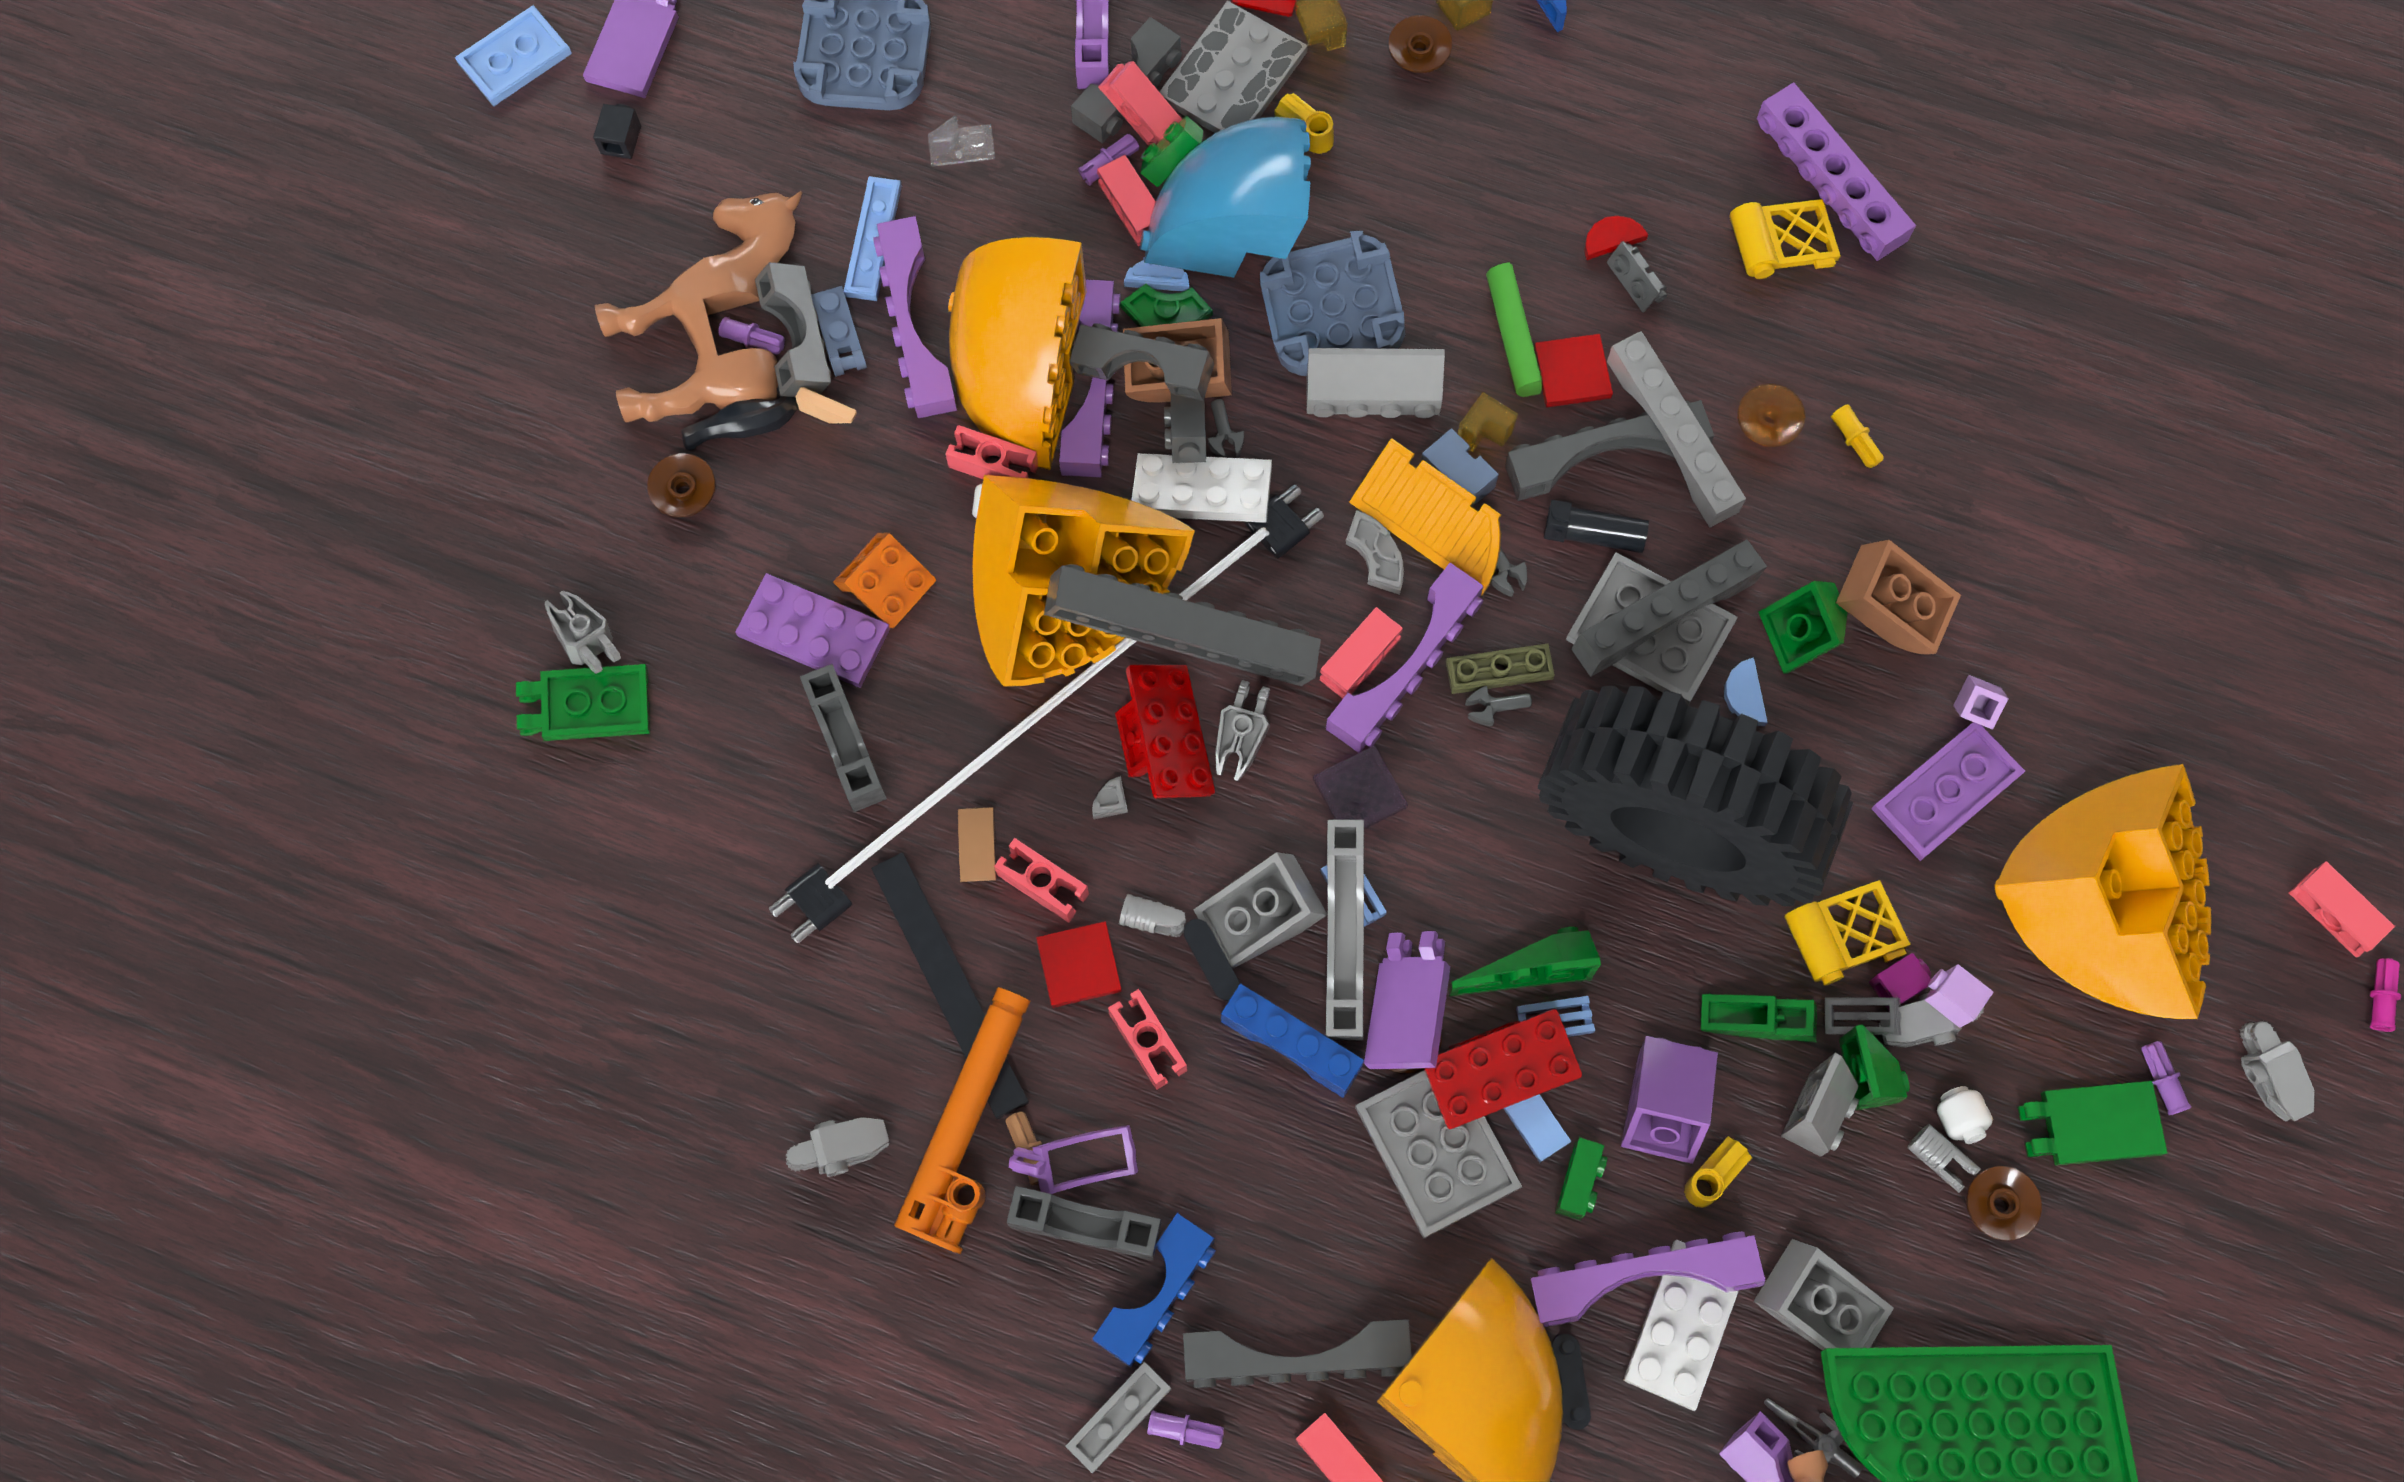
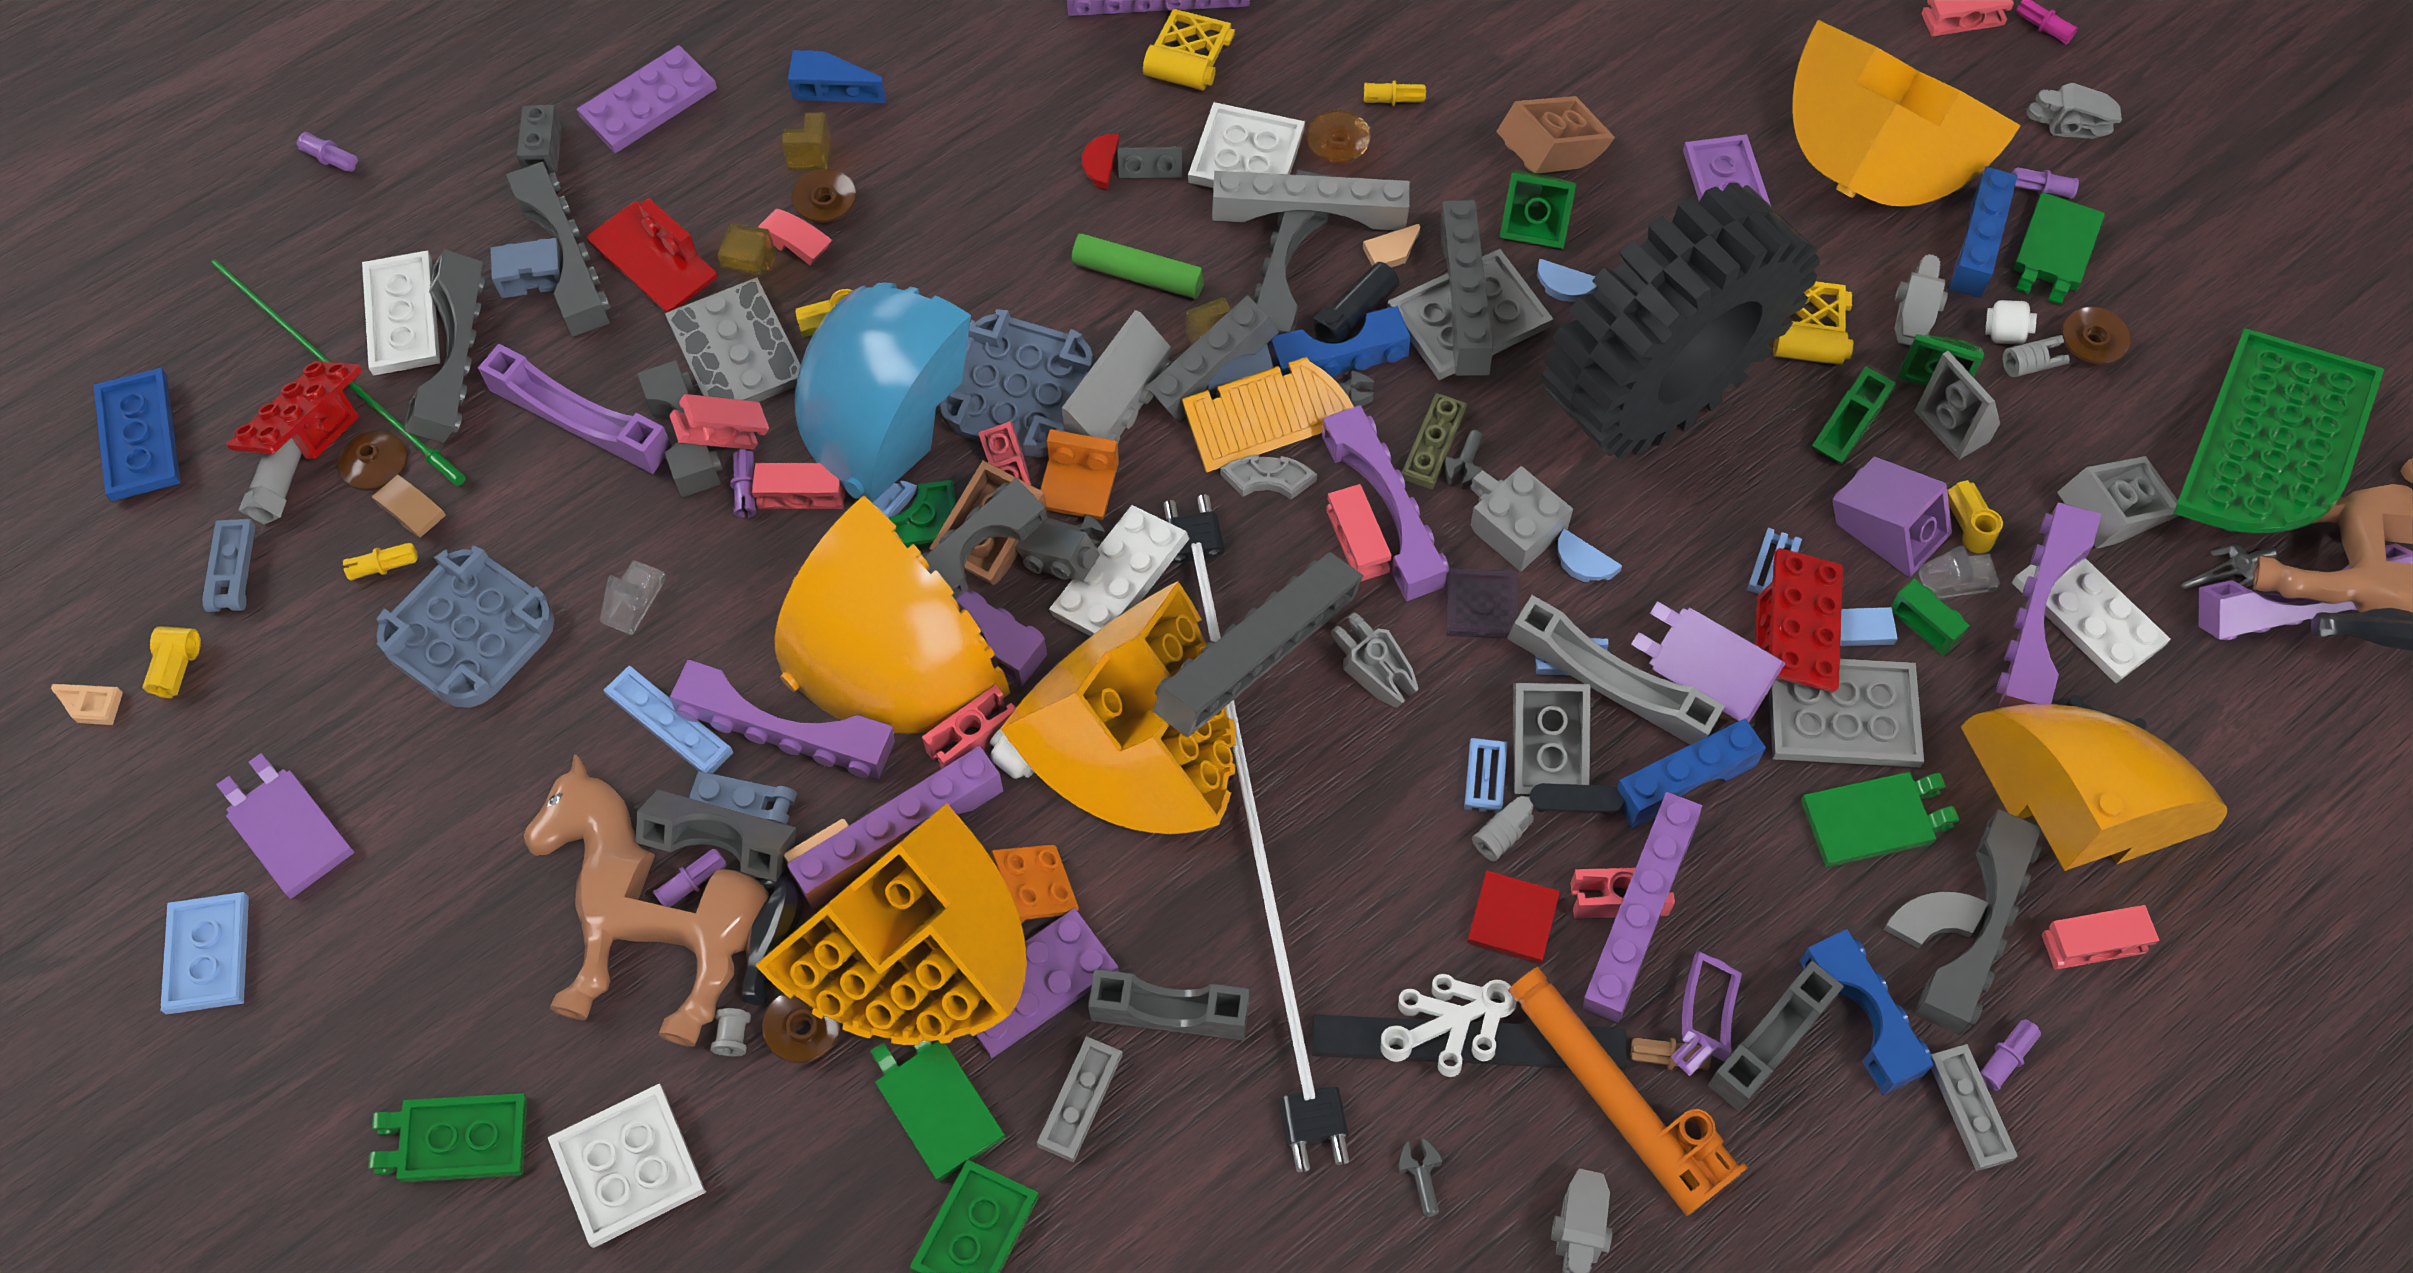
camera: 60 degrees left, 10 degrees down
(471, 309) = (453, 1138): none -> green tile
(513, 434) = (626, 1165): none -> white plate
(582, 632) = (893, 1202): light grey hinge -> none
(617, 131) = (374, 890): black brick -> none
(649, 440) = (730, 1032): none -> light grey bush
(678, 616) = (937, 1107): none -> green tile
(736, 717) = (1079, 1099): none -> light grey plate
(780, 521) = (913, 944): none -> light orange brick
(819, 1004) = (1422, 1175): none -> dark grey bar
(833, 433) = (843, 857): none -> medium lavender arch
(956, 961) = (1452, 1018): none -> white plant
(976, 844) = (1345, 942): medium nougat slope -> none
(1037, 866) = (1417, 888): coral piece -> none
(1077, 1065) = (1642, 907): none -> medium lavender arch
(1110, 800) = (1368, 808): light grey tile -> none
(1164, 732) = (1334, 730): red bracket -> none
(1177, 142) = (782, 423): green piece -> none
(1201, 890) = (1483, 803): none -> light blue tile
(1257, 338) = (1004, 450): none -> coral slope
(1273, 404) = (1079, 474): none -> orange bracket
(1285, 1312) = (1934, 915): none -> light grey tile
(1348, 1220) = (1876, 817): none -> green tile
(1366, 47) = (796, 235): none -> coral slope
(1455, 854) = (1584, 560): none -> light blue tile
(1460, 776) = (1518, 516): none -> light grey hinge
(1482, 445) = (1238, 333): none -> dark grey arch
(1553, 960) = (1722, 540): green wedge -> none
(1571, 567) = (1379, 341): none -> blue arch
(1573, 370) = (1204, 245): red tile -> none
(1646, 1188) = (1959, 574): none -> clear slope
(1682, 527) = (1392, 247): none -> light nougat tile
(1704, 346) = (1245, 142): none -> white plate
(1894, 1015) = (1909, 318): flat silver tile -> none
(1902, 979) = (1876, 305): magenta brick -> none
(1958, 995) = (1924, 260): lavender brick -> none
(1980, 702) = (1674, 129): lavender brick -> none
(2058, 1041) = (1984, 233): none -> blue arch

